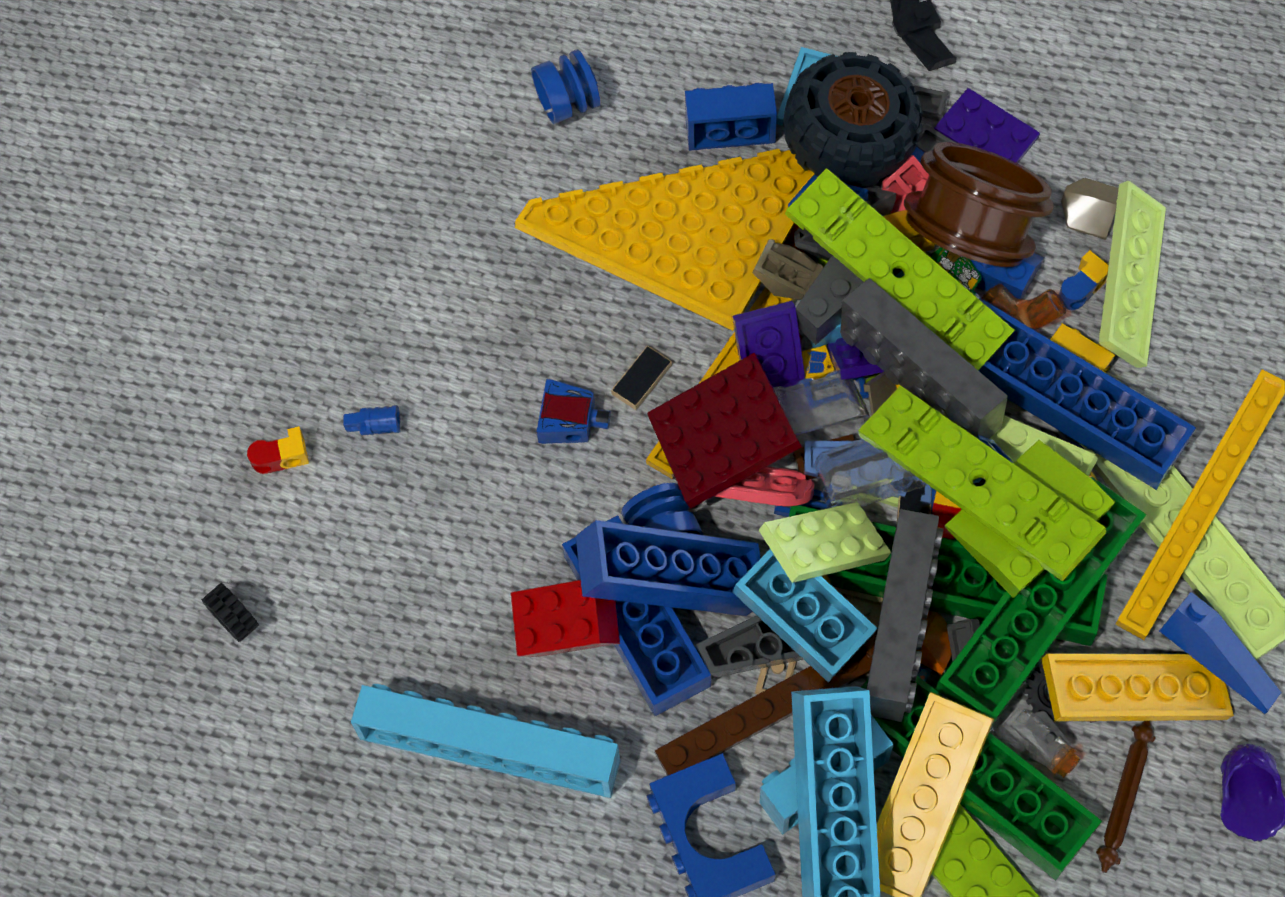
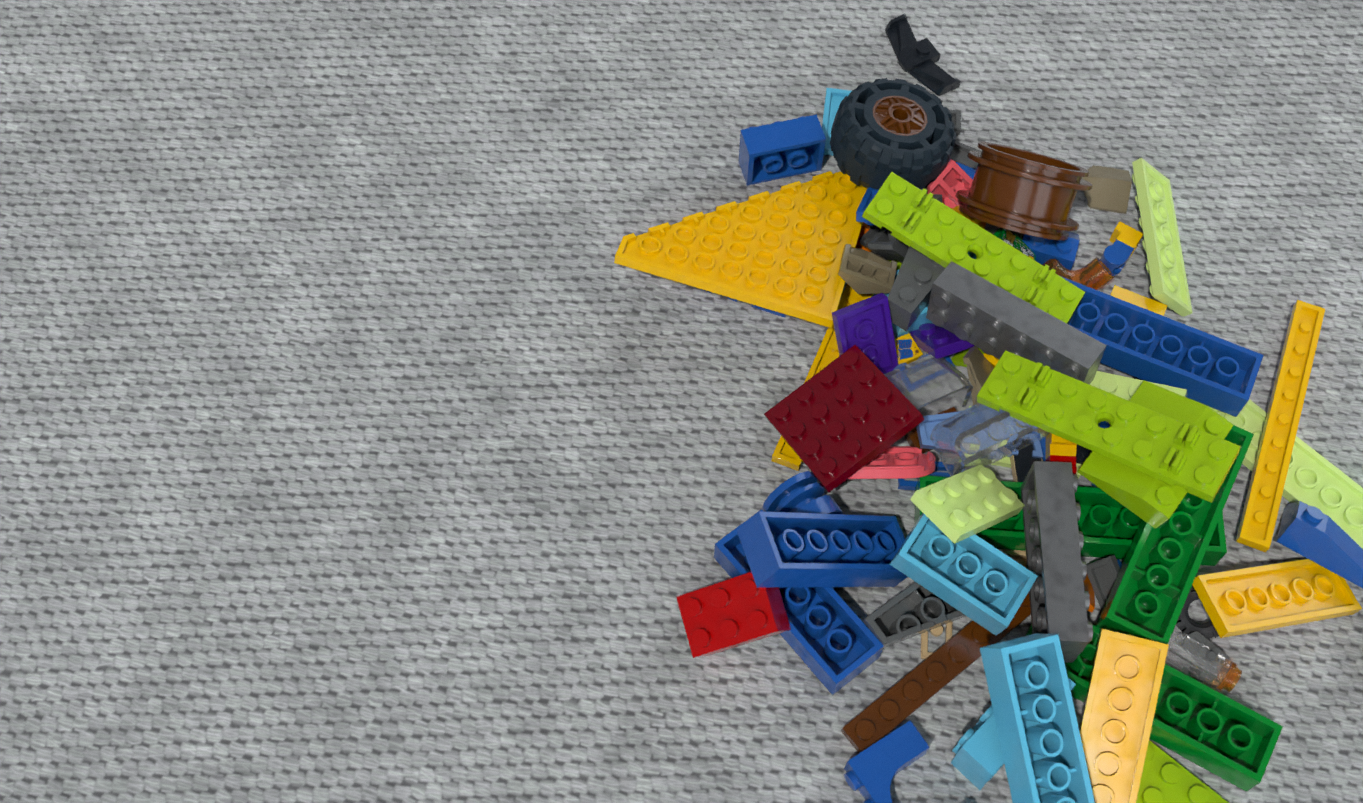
camera: 15 degrees left, 5 degrees down
(230, 612) = (402, 658): black tyre -> none
(278, 454) = (424, 501): leg -> none
(373, 420) = (508, 457): blue hinge -> none
(486, 740) = (681, 744): medium azure brick -> none
(568, 414) = (691, 425): torso -> none
(569, 85) = (629, 141): blue wheel -> none
(641, 377) = (749, 384): black tile -> none
(987, 127) = (996, 128): dark purple plate -> none
(1125, 796) = (1287, 700): reddish brown wheel -> none

